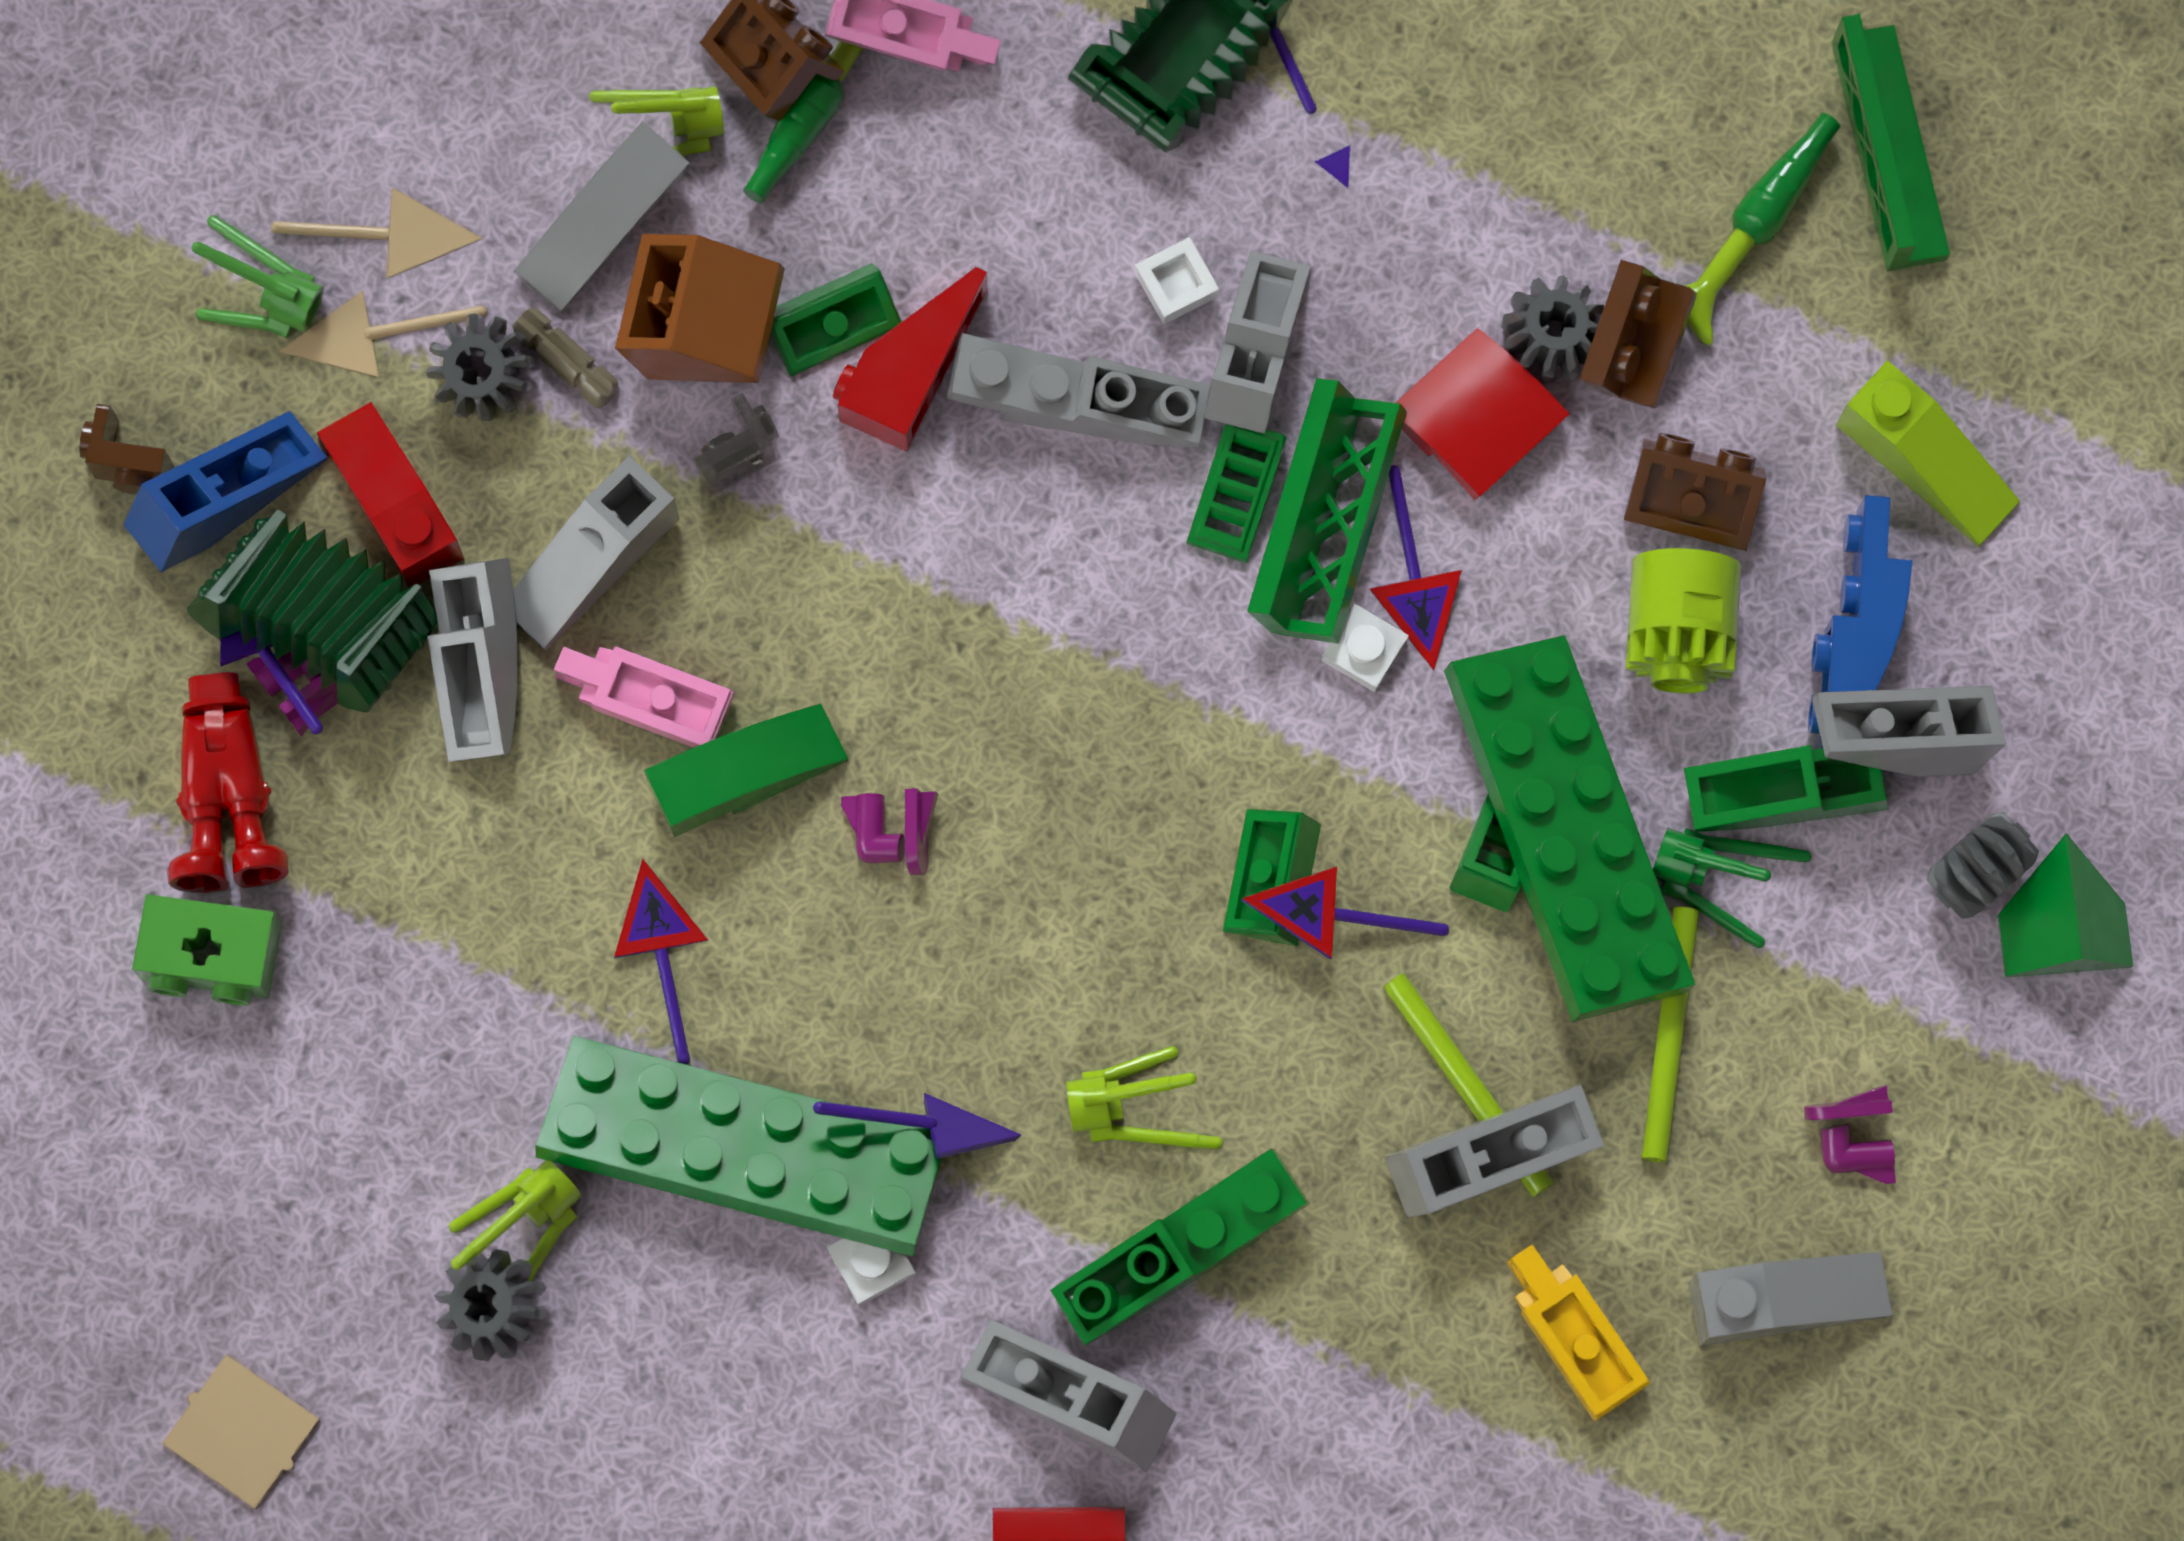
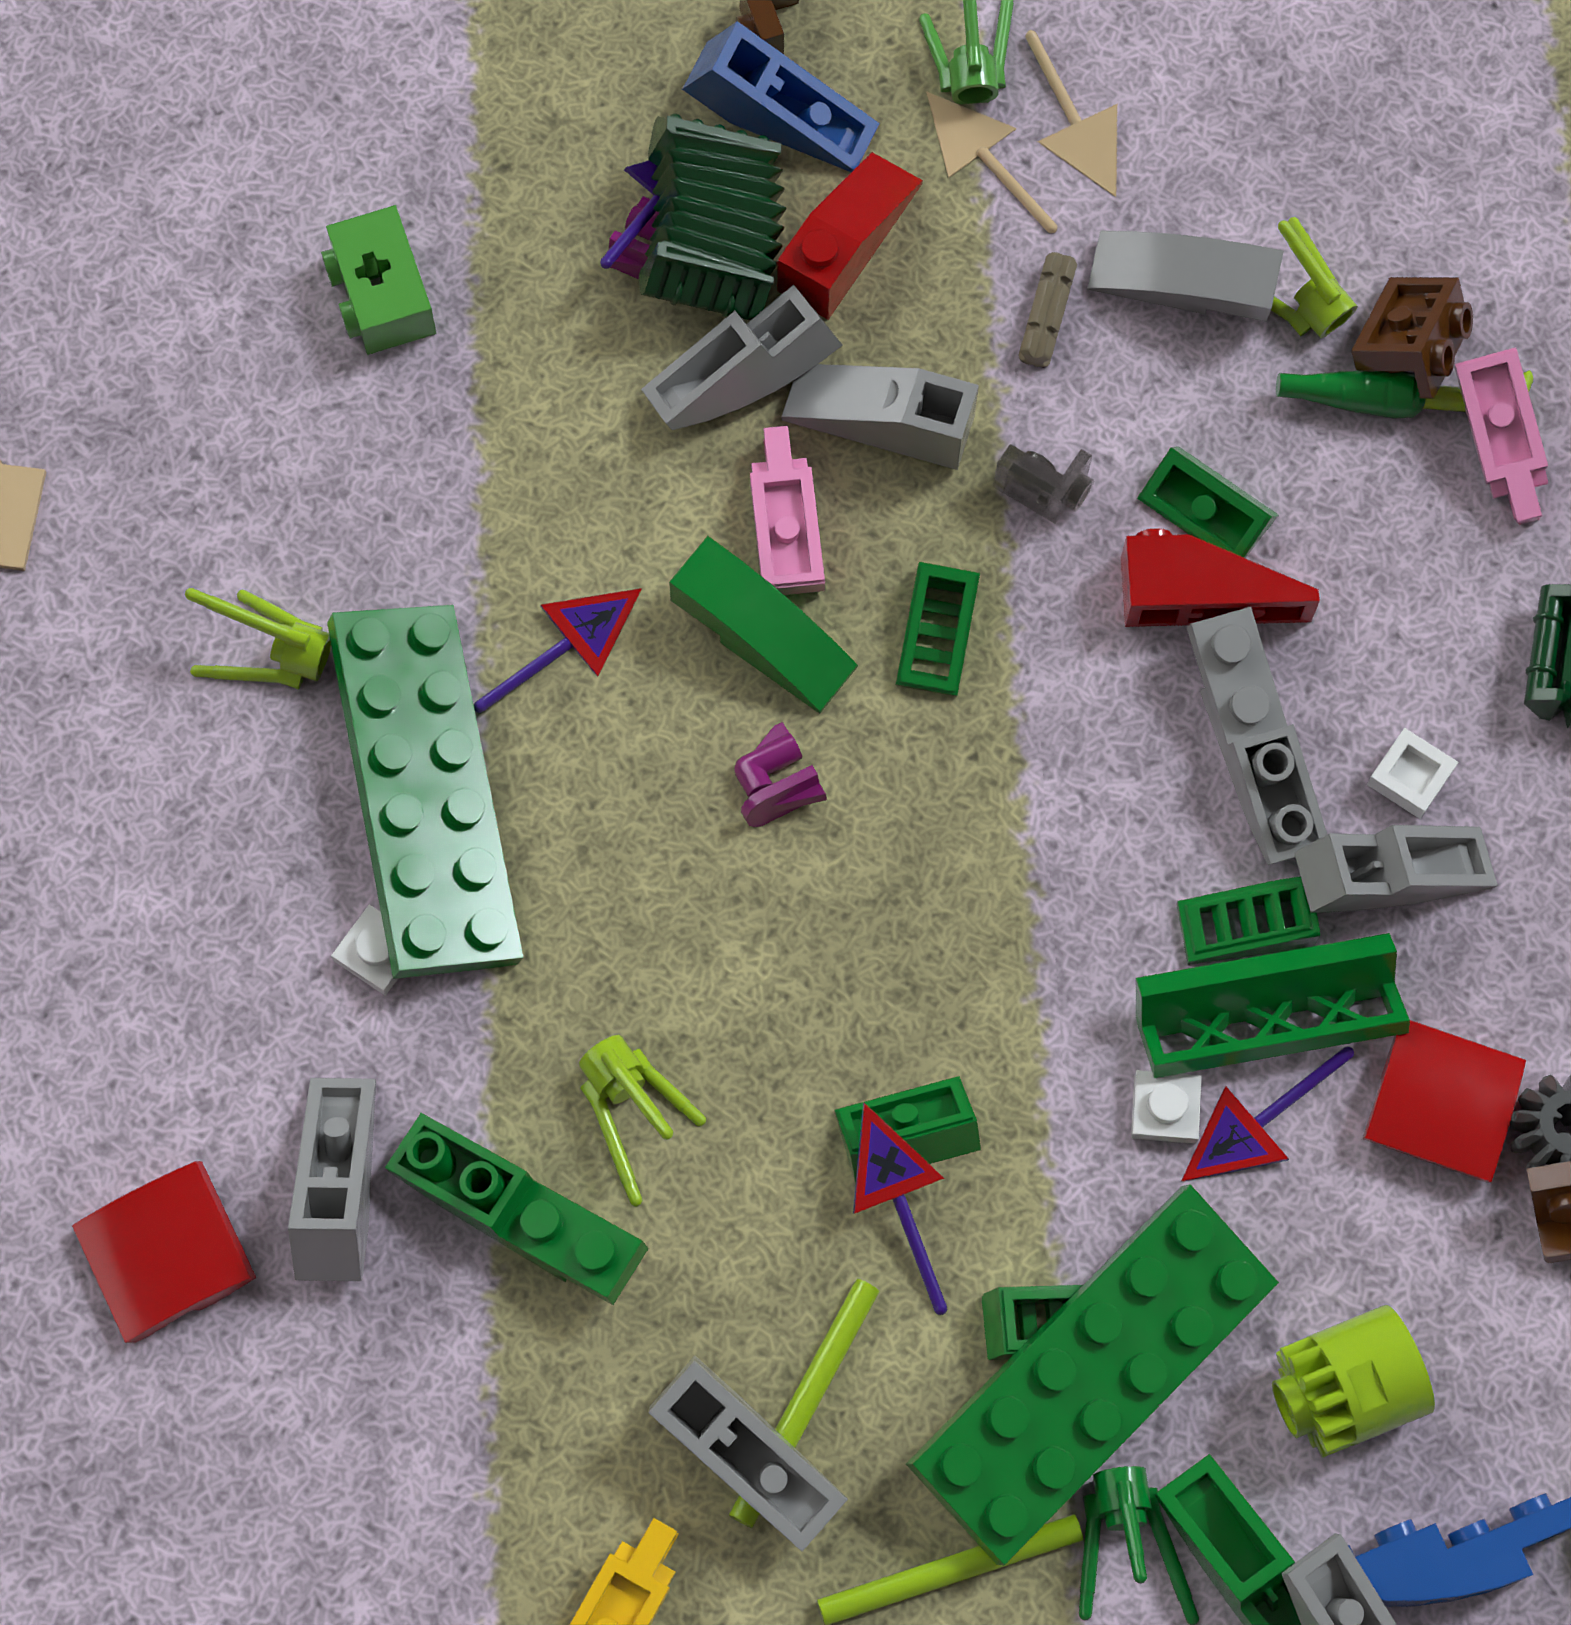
camera: 65 degrees right, 5 degrees down
(220, 774) = (531, 219): red piece -> none
(461, 378) = (997, 242): dark grey gear -> none
(512, 1300) = (180, 651): dark grey gear -> none
(698, 310) = (1145, 383): dark orange slope -> none
(792, 618) = (943, 579): none -> green slope
(950, 1126) = (532, 955): dark purple piece -> none
(1696, 491) = (1486, 1337): reddish brown bracket -> none

